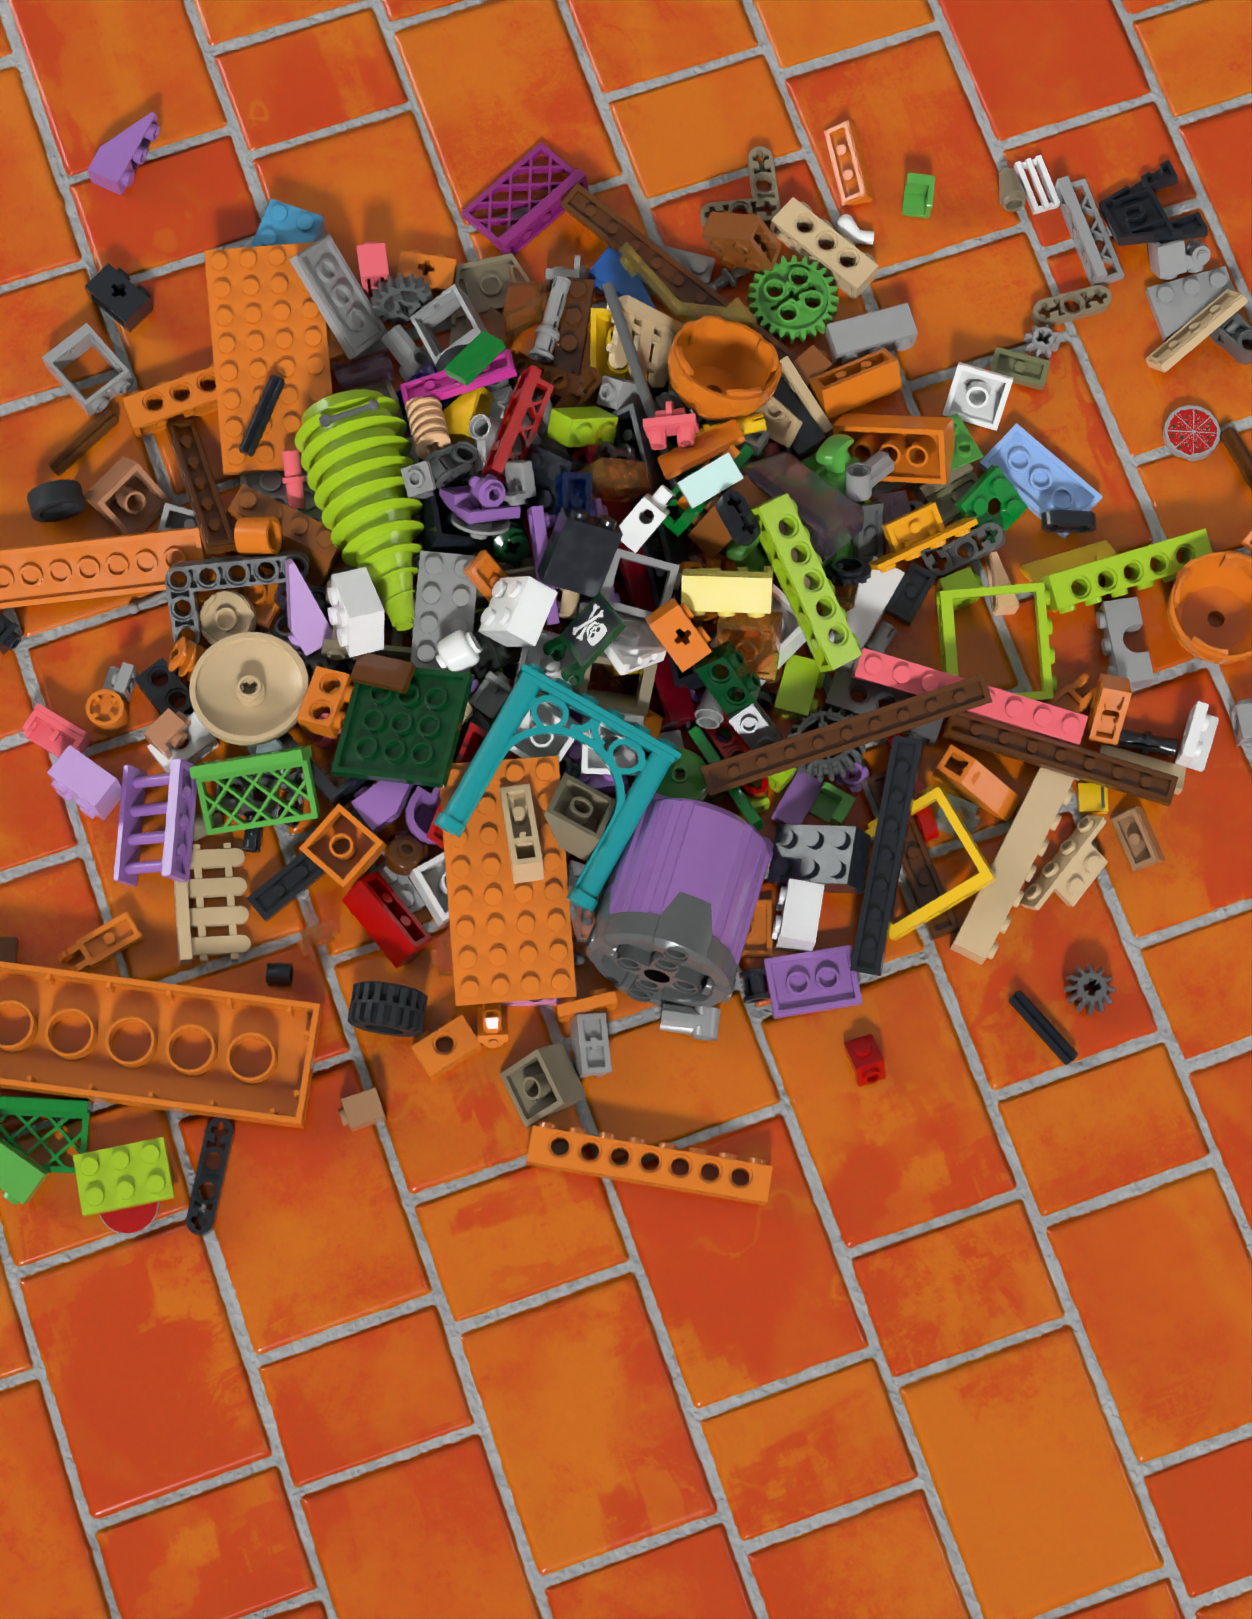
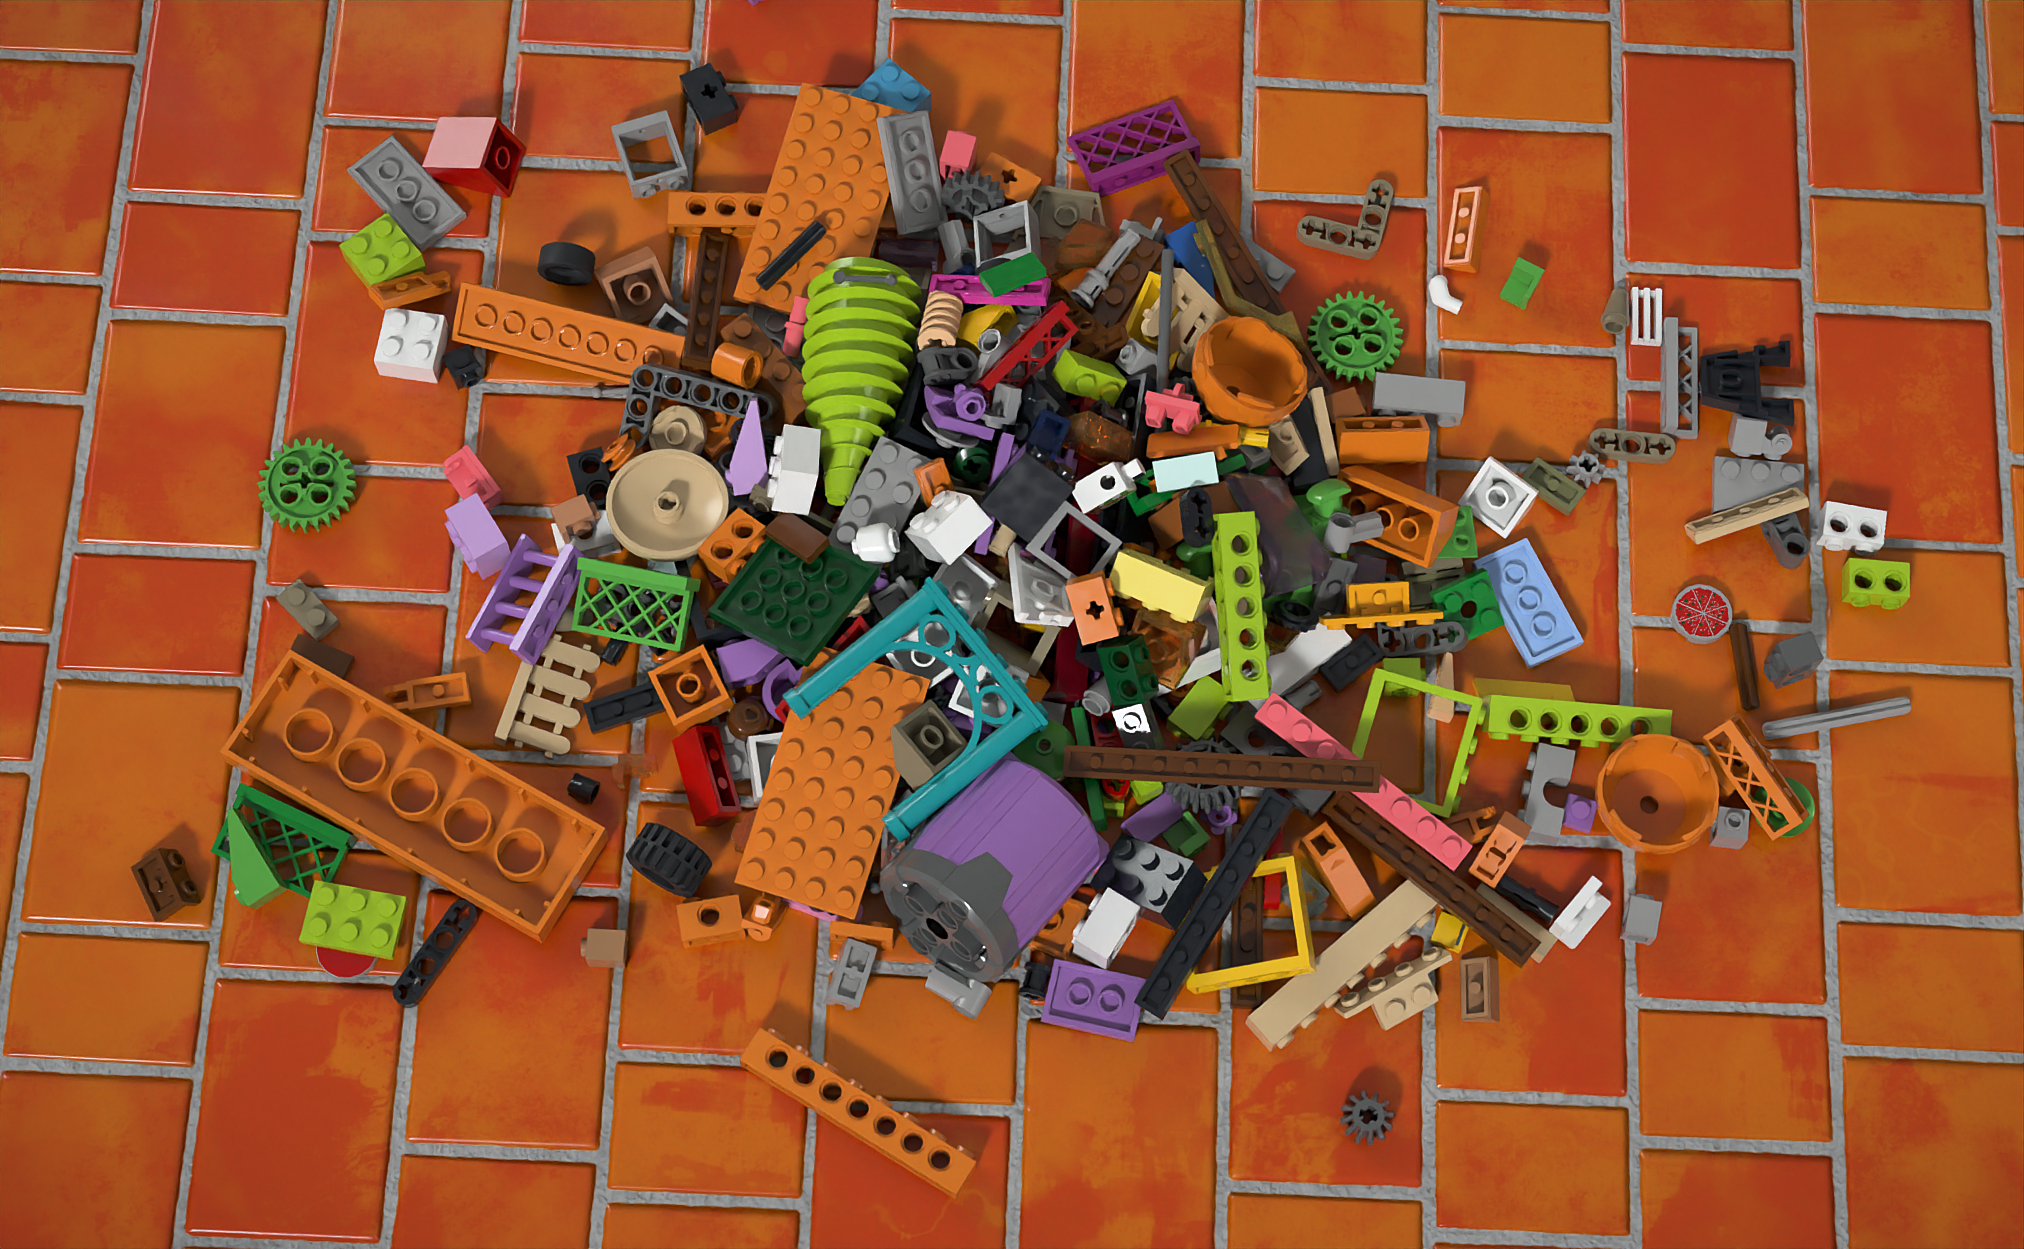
camera: 25 degrees right, 5 degrees down
(83, 442) = (617, 220): reddish brown axle -> none
(107, 712) = (528, 478): orange piece -> none
(121, 680) = (553, 455): light grey bracket -> none
(419, 480) = (906, 368): light grey bracket -> none
(521, 834) = (862, 740): tan slope -> none
(543, 1084) = (789, 993): dark tan slope -> none
(586, 638) = (1001, 576): flag -> none
(728, 278) = (1303, 294): dark grey piece -> none
(741, 240) = (1324, 261): dark orange brick -> none
(851, 279) = (1420, 339): tan brick -> none
(865, 1060) = (1114, 1097): red bracket -> none
(1043, 1027) = (1305, 1137): black axle -> none
(1068, 521) = (1536, 651): black beam -> none
(1160, 649) = (1579, 813): none -> medium lavender plate

